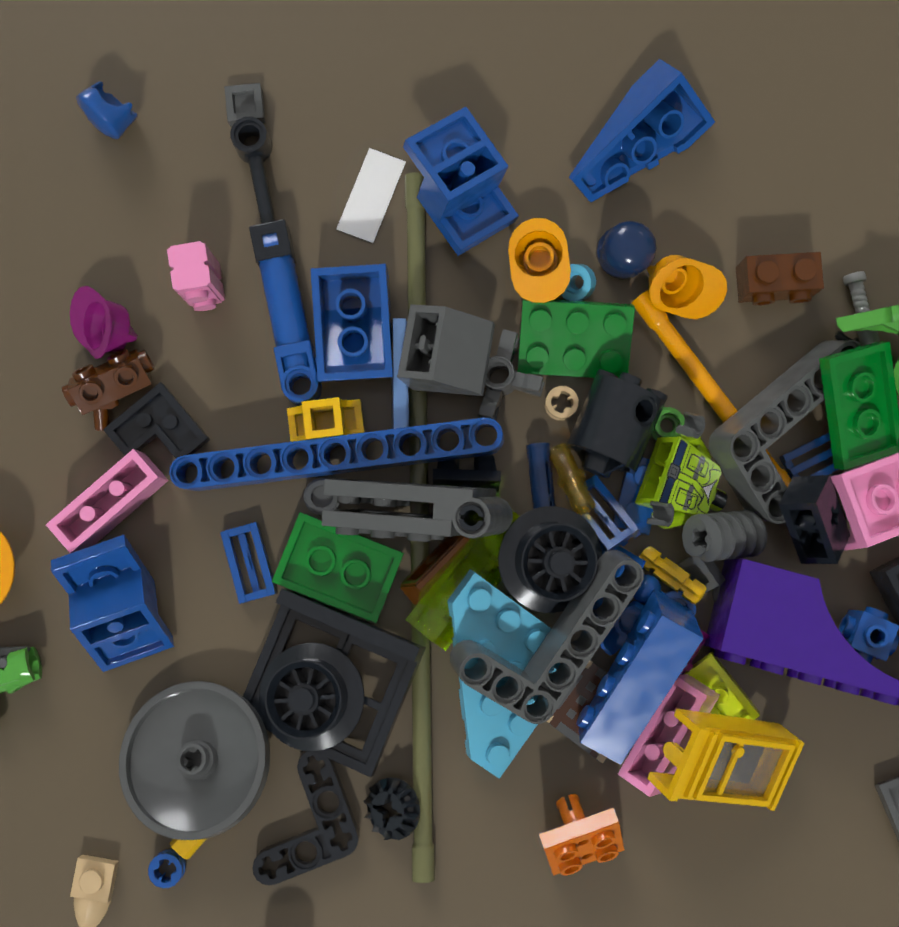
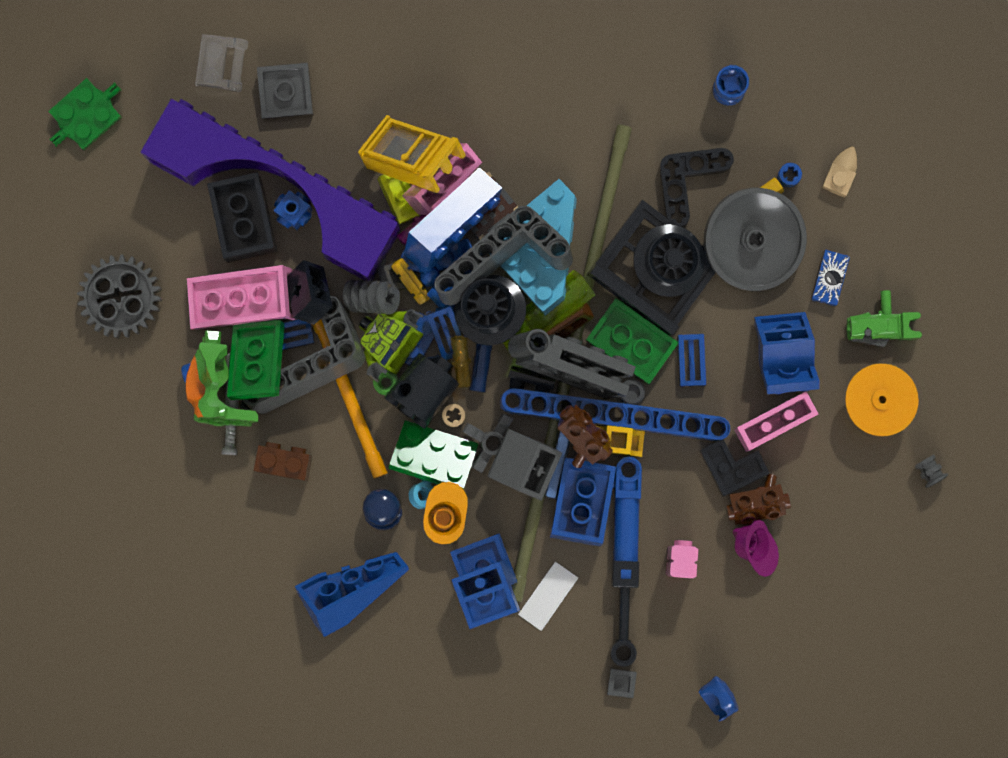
camera: 165 degrees left, 0 degrees up
(77, 730) = (830, 278): none -> tile
(370, 406) = (587, 438): none -> reddish brown brick
(403, 800) = (625, 180): black gear -> none
(581, 838) = (516, 128): orange plate -> none
(686, 287) = (349, 472): light orange piece -> none

